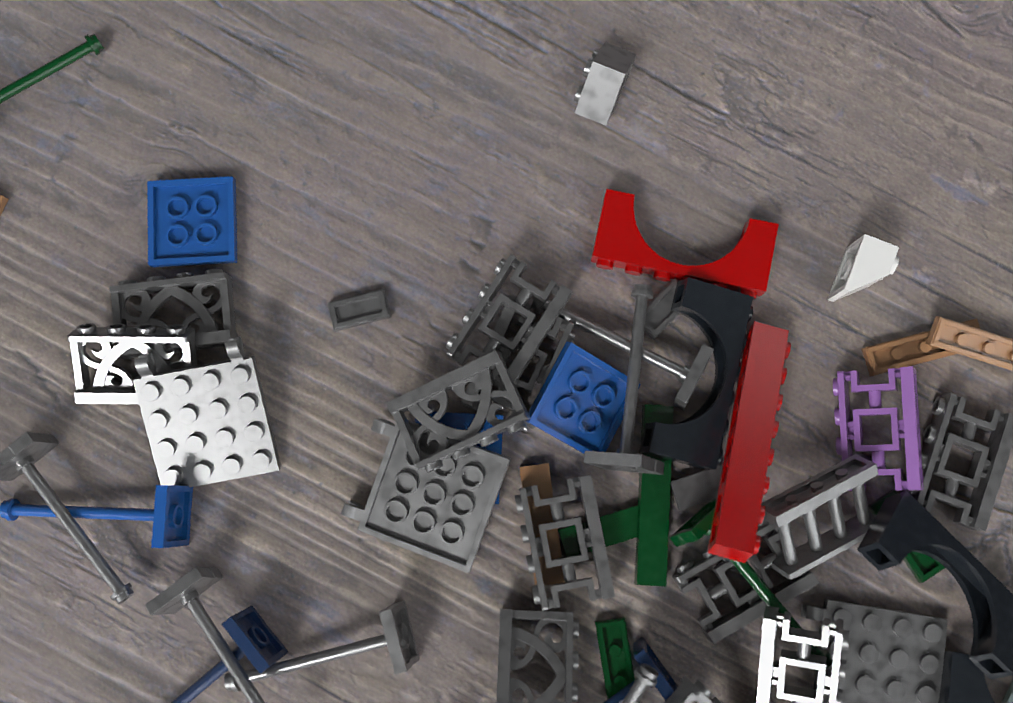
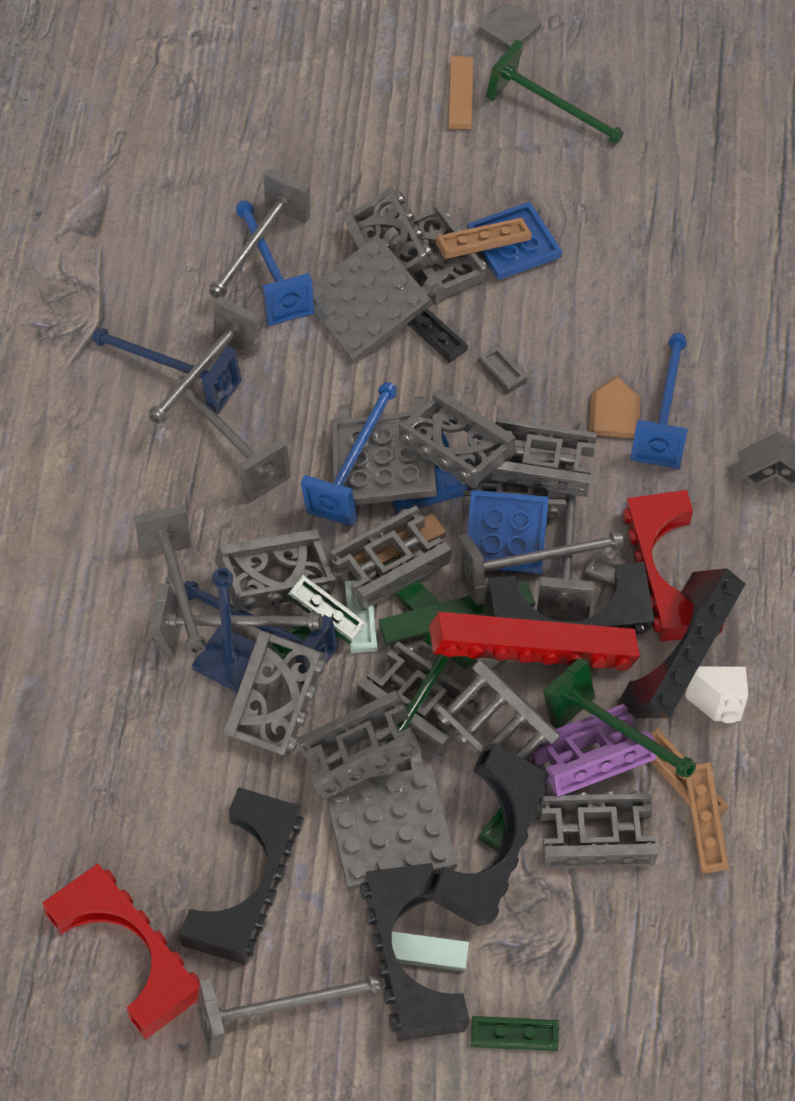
camera: 60 degrees right, 25 degrees down
(181, 257) = (483, 238): none -> medium nougat tile
(288, 358) = (438, 335): none -> black tile
(461, 214) = (614, 409): none -> medium nougat tile
(467, 576) = (335, 500): none -> blue tile
(535, 190) = (658, 442): none -> blue tile
(608, 641) = (313, 598): none -> tile
(628, 600) = (366, 638): none -> light aqua tile
(789, 230) = (661, 690): none -> black arch
(813, 421) = (575, 692): none -> dark green tile

